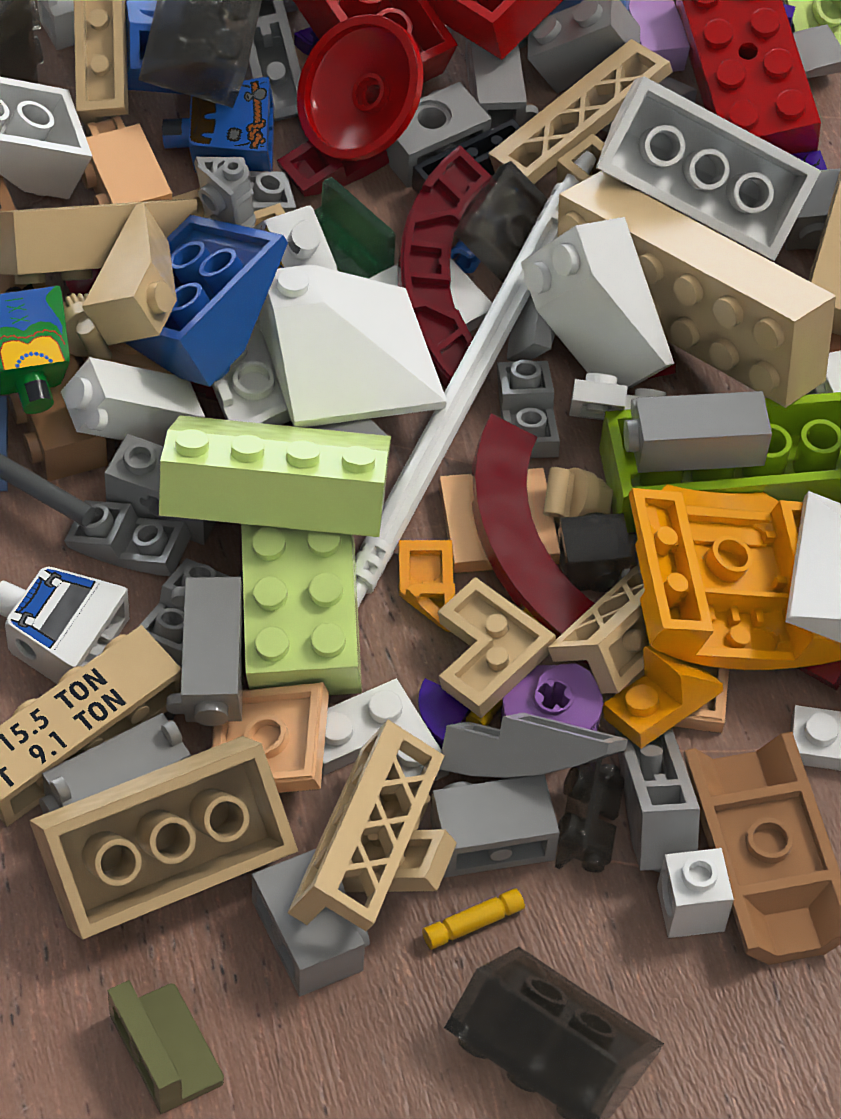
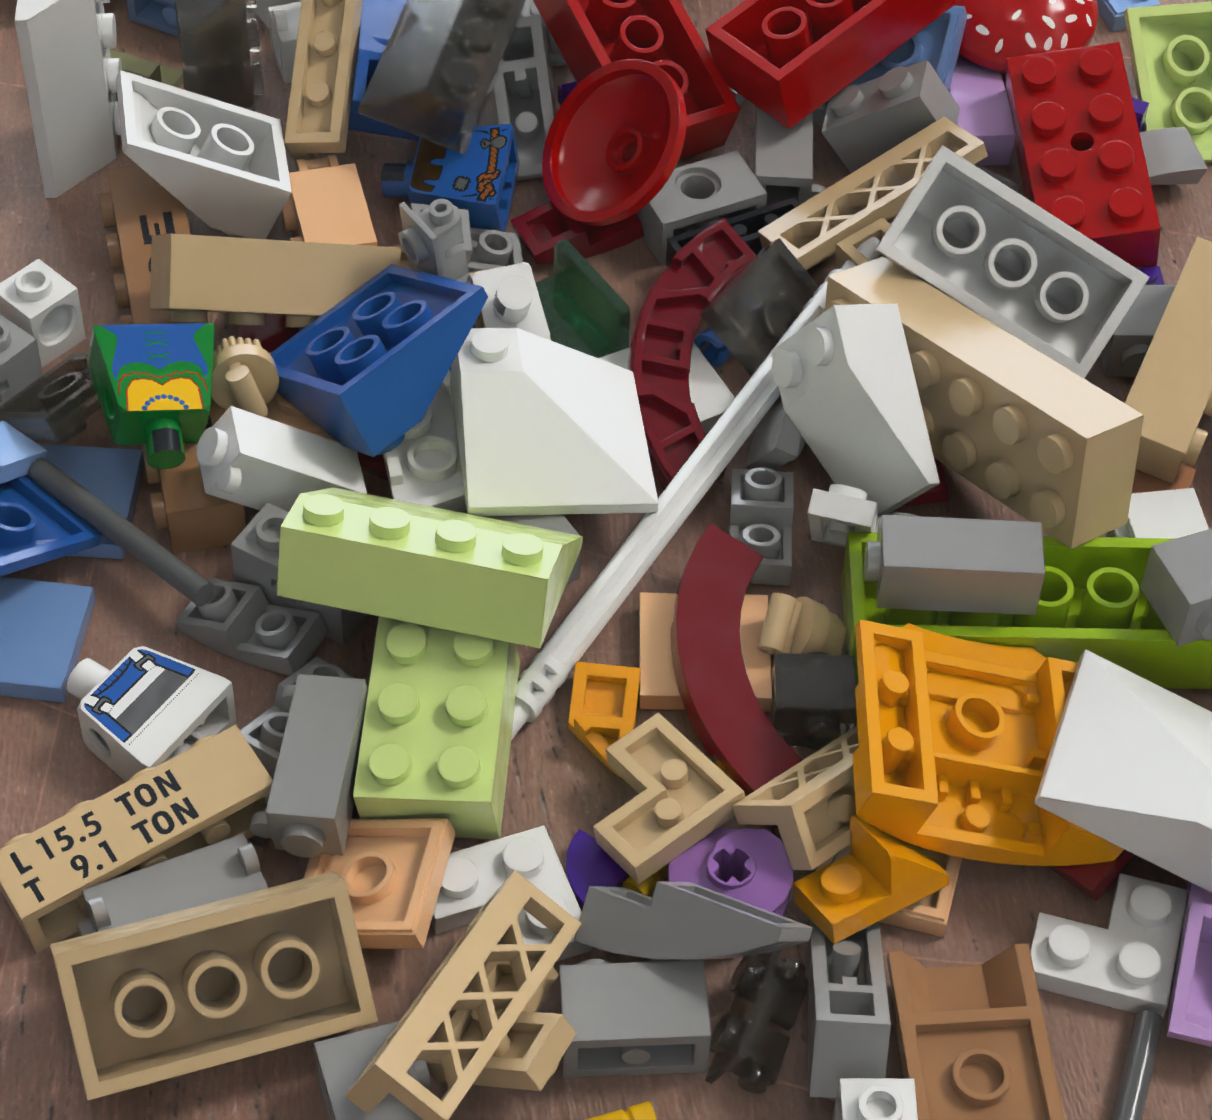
camera: 10 degrees right, 5 degrees down
(135, 283) = (303, 329): tan slope -> none

